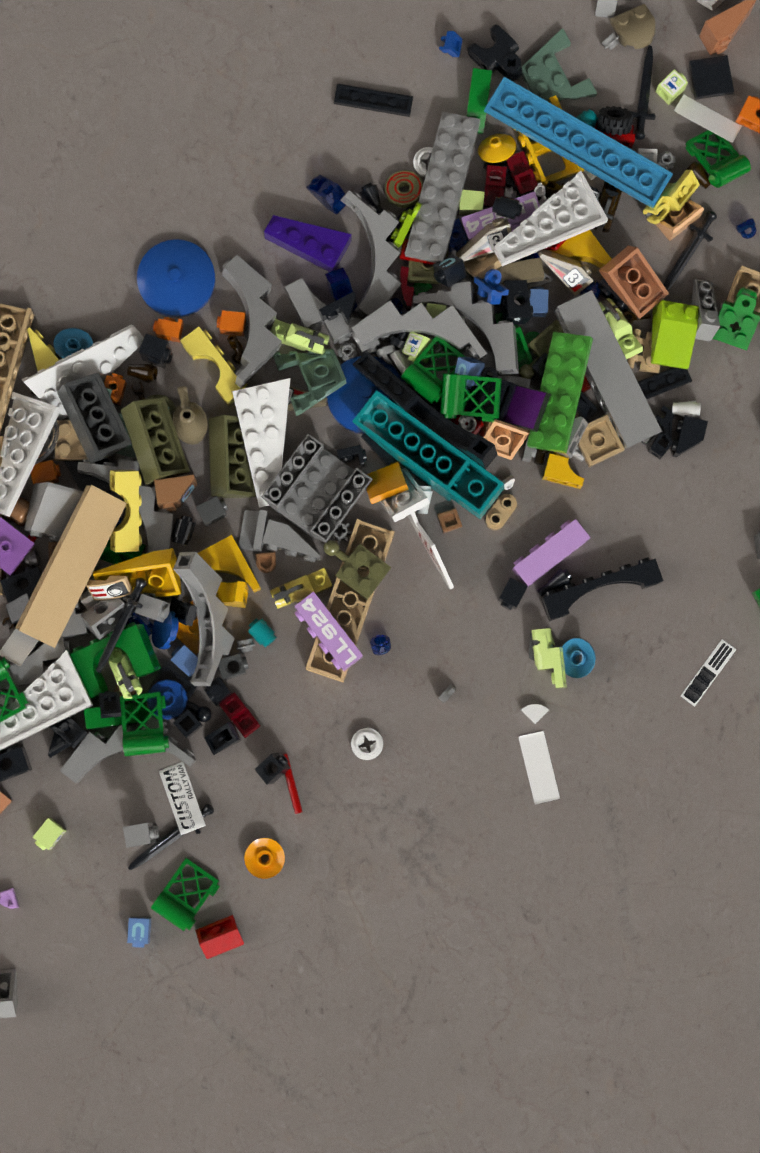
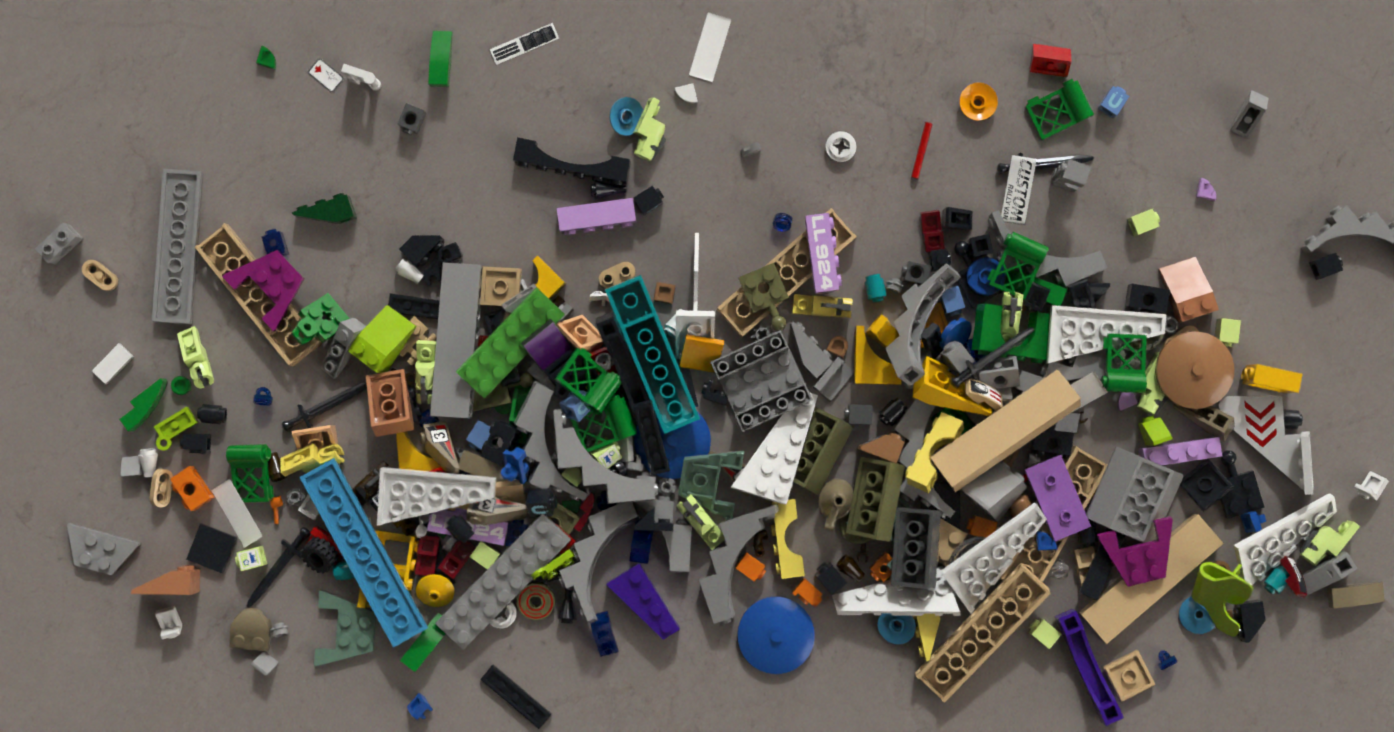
camera: 145 degrees left, 5 degrees up
(264, 769) = (937, 170): black brick -> none
(499, 56) = (384, 671): black piece -> none
(680, 145) = (275, 503): none -> orange hand

